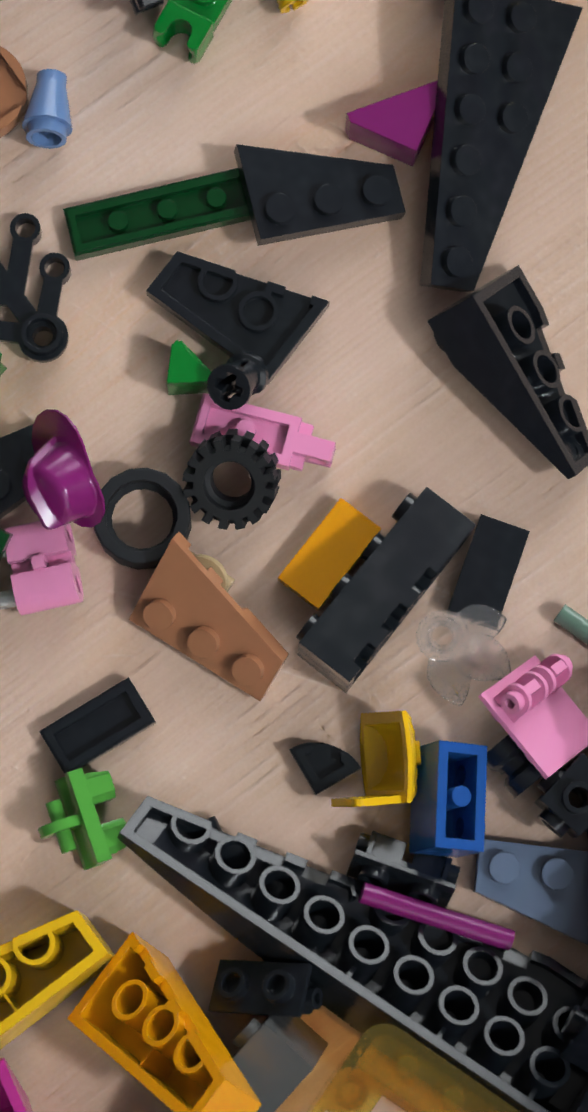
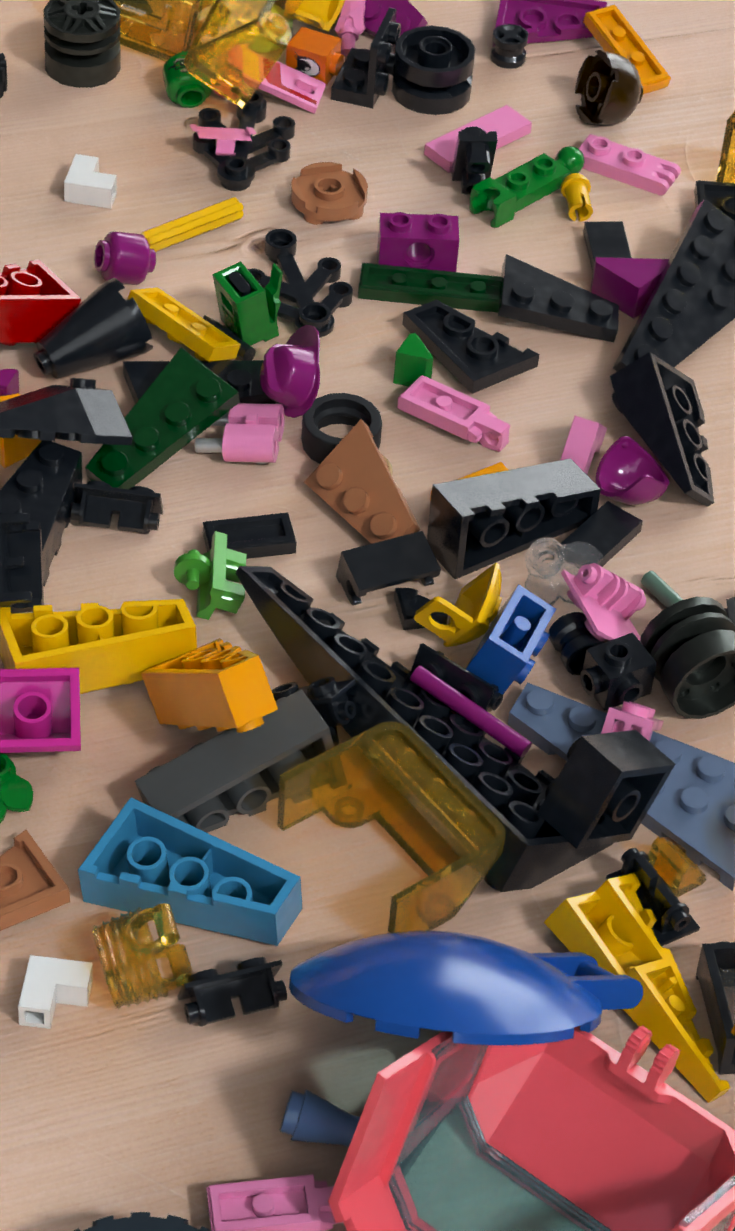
camera: 20 degrees right, 35 degrees down
(48, 113) = (367, 213): medium blue cone -> none
(122, 158) = (418, 241): none -> magenta brick
(218, 505) = (412, 399): black tyre -> none
(233, 378) = (447, 363): black bush -> none
(274, 730) = (386, 565): none -> black hinge
(348, 60) = (606, 240): none -> black tile
(427, 436) = (583, 441): none -> bright pink piece
(498, 469) = (630, 474): none -> magenta helmet

